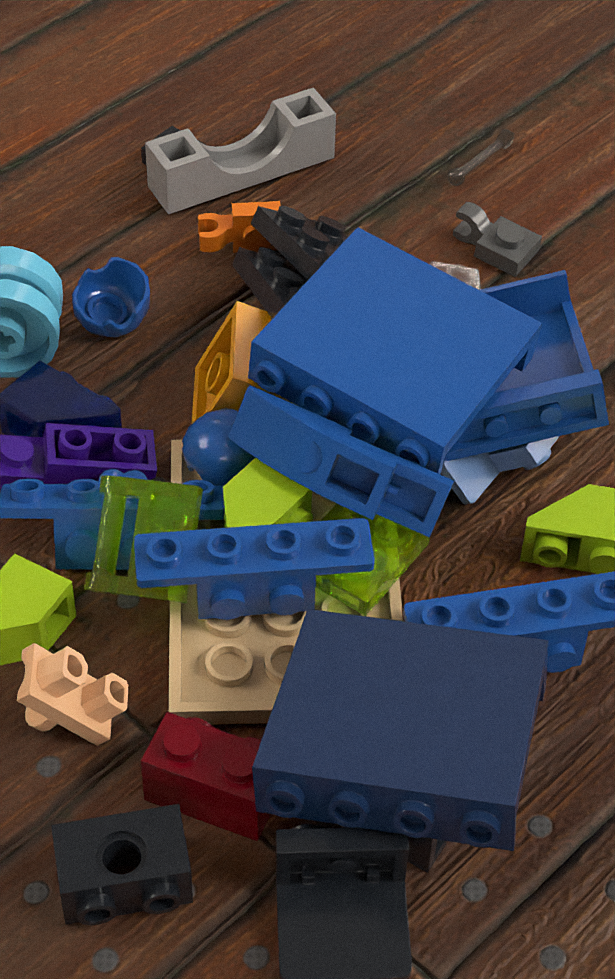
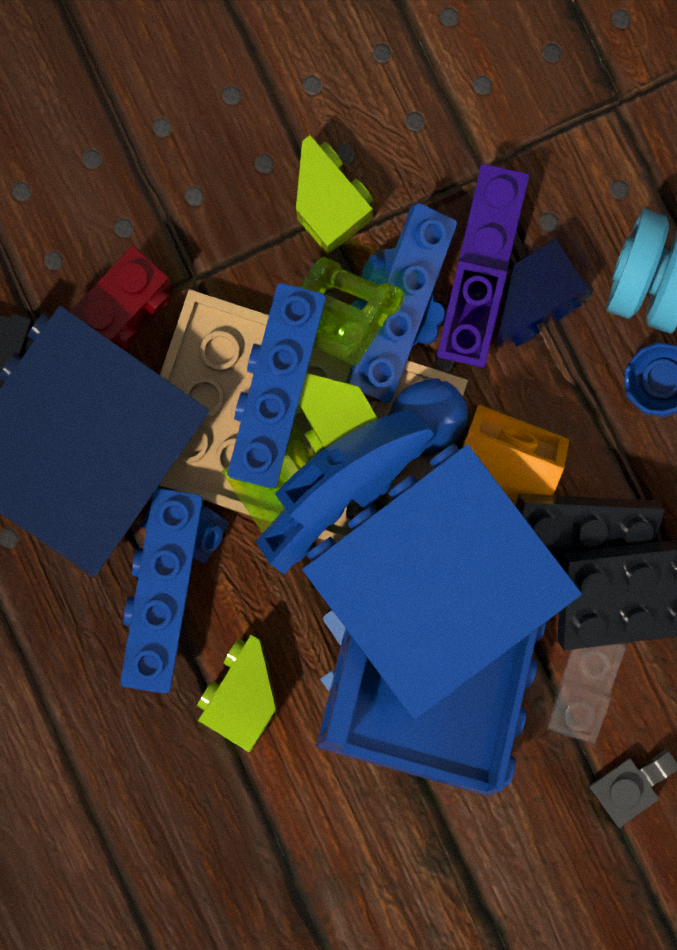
camera: 120 degrees right, 35 degrees up
(64, 694) = (226, 217): light nougat hips -> none
(144, 839) = (82, 244): black brick -> none

